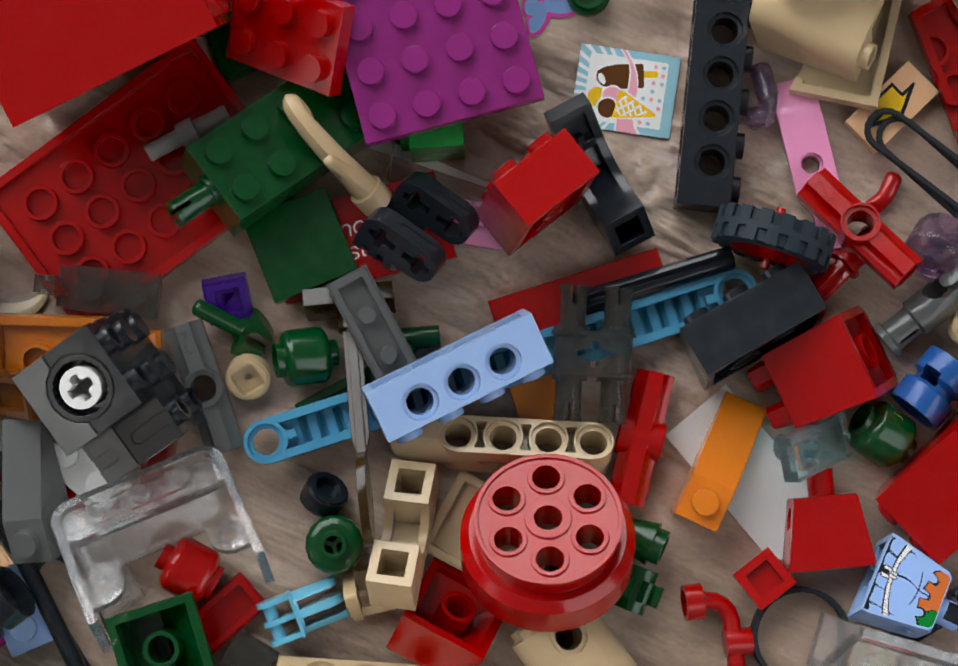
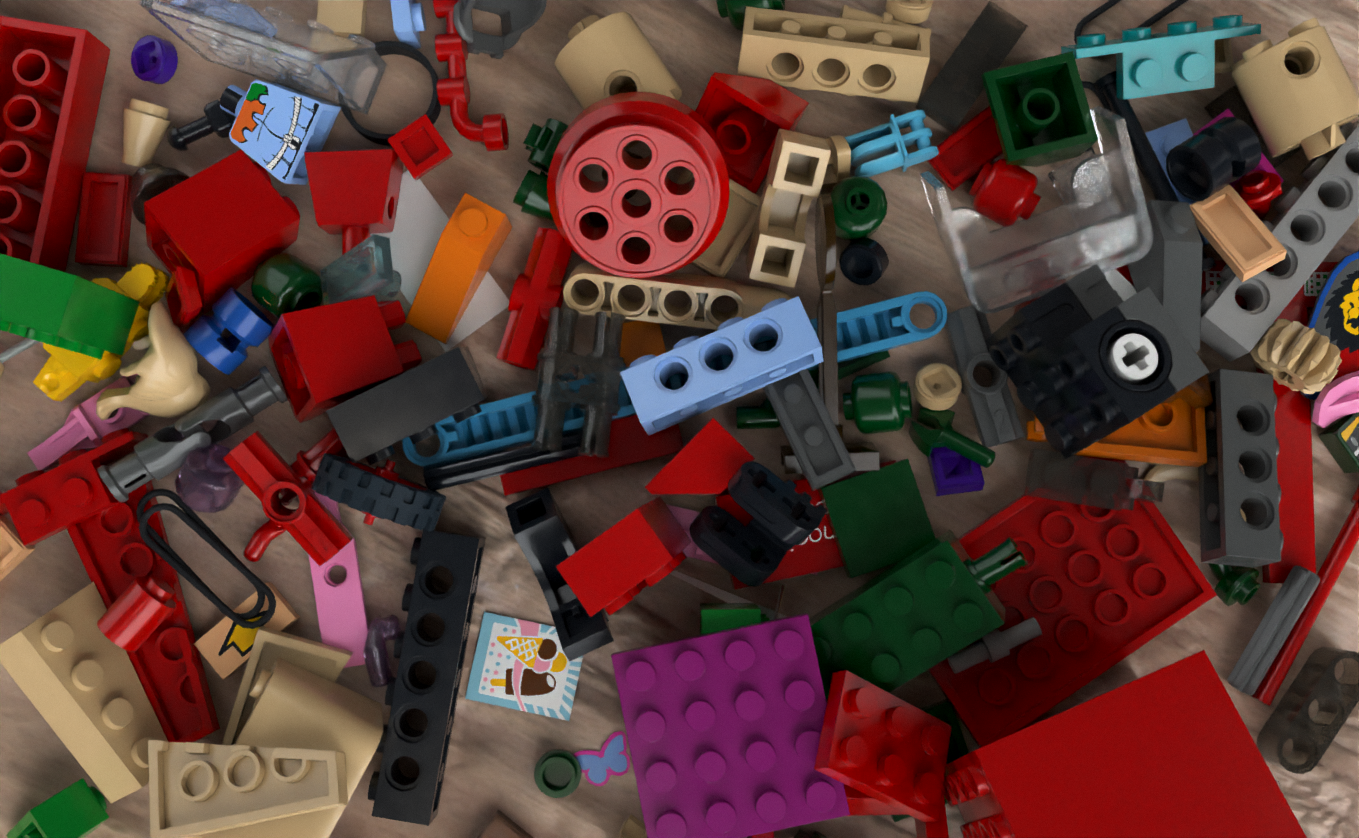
camera: 175 degrees right, 0 degrees up
(366, 190) = (807, 569): tan plant -> none
(471, 281) = (701, 465): none -> red slope

